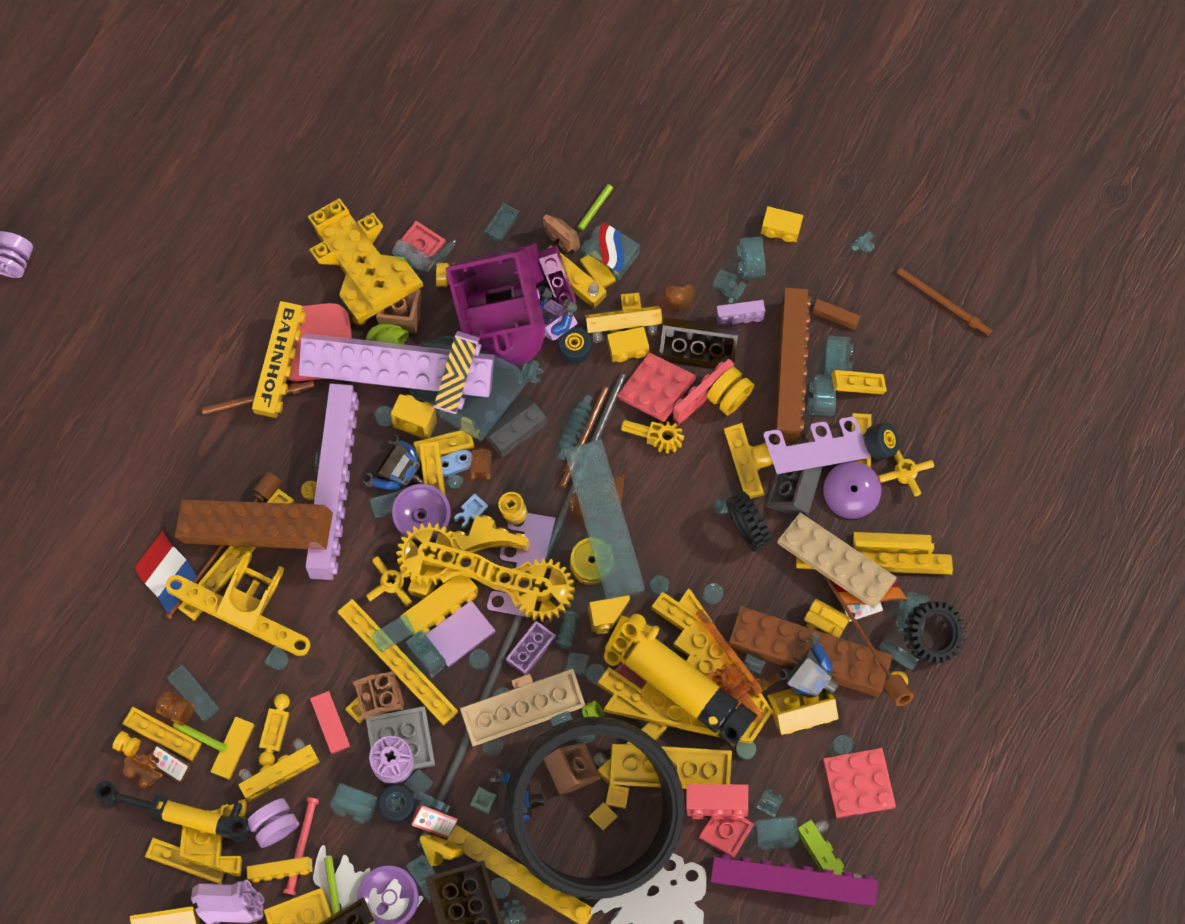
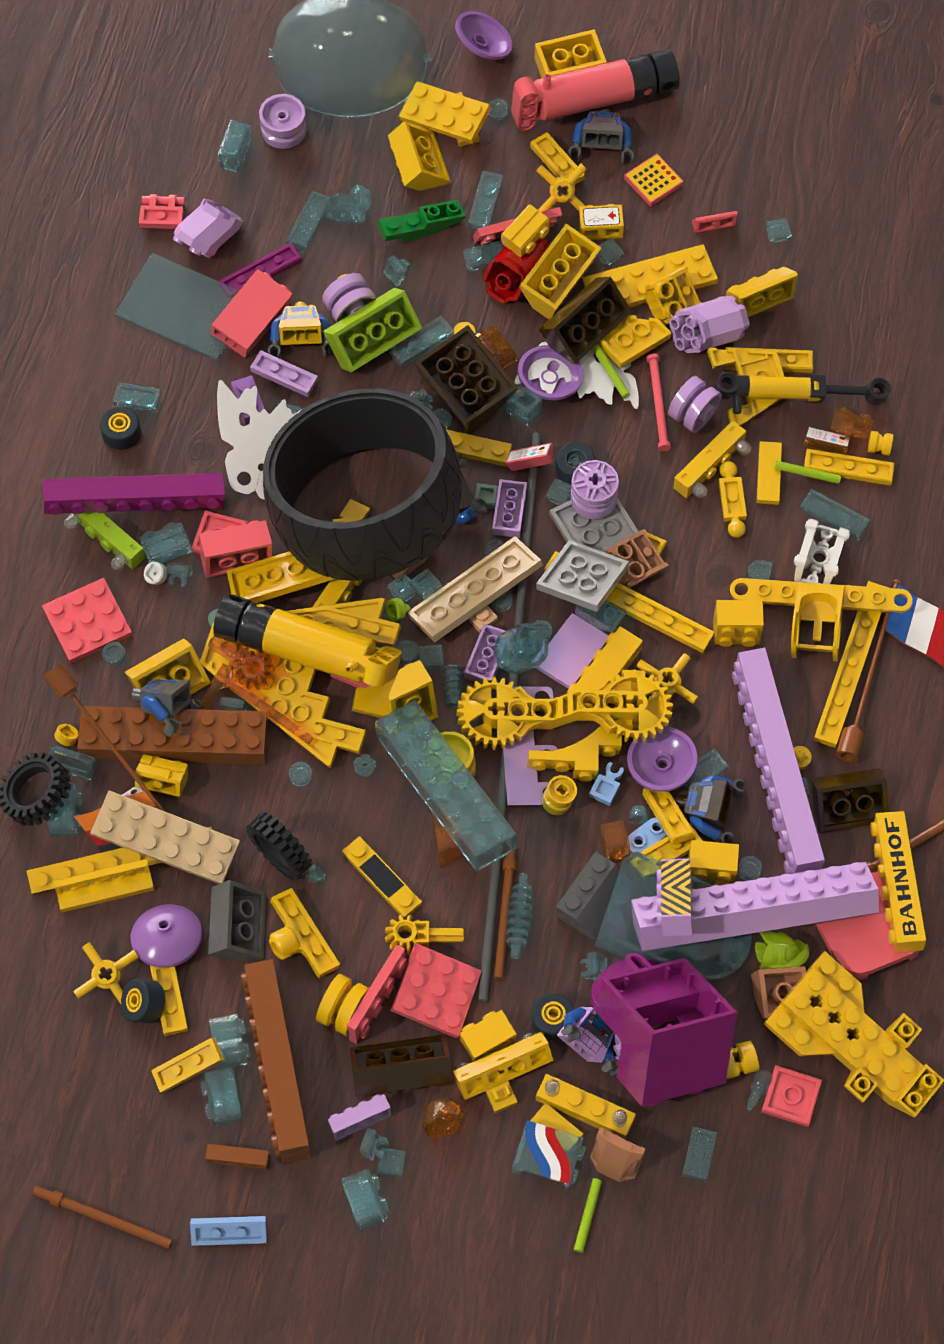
camera: 165 degrees right, 5 degrees down
(175, 708) = (837, 485): clear orange wheel -> none
(213, 647) = (809, 549): none -> white piece
(254, 524) = (842, 680): dark orange brick -> none
(279, 869) = (670, 371): yellow piece -> none
(285, 444) = (849, 799): none -> dark brown slope
(316, 607) = (738, 622): none -> yellow brick
(330, 722) = (677, 525): coral tile -> none
(354, 803) = (620, 451): clear light blue brick -> none
(393, 633) = (643, 620): clear light blue tile -> none
(415, 257) = (792, 1064): clear light blue brick -> none
(427, 801) = (541, 472): clear light blue plate -> none
(430, 682) = (582, 575): none -> light grey plate
(438, 849) = (513, 432): yellow slope -> none
(468, 778) = (509, 508): none -> lavender piece
(503, 634) = (520, 649): none -> clear light blue brick
(556, 274) = (605, 1089): magenta slope -> none
(672, 490) = (381, 877): none -> yellow plate
(781, 224) = (337, 1257): yellow brick -> none
(791, 807) = (155, 573): none -> white tile
(822, 452) = (211, 955): lavender piece -> none
(855, 264) = (228, 1230): none -> light blue plate
(863, 242) = (225, 1265): clear light blue tile -> none

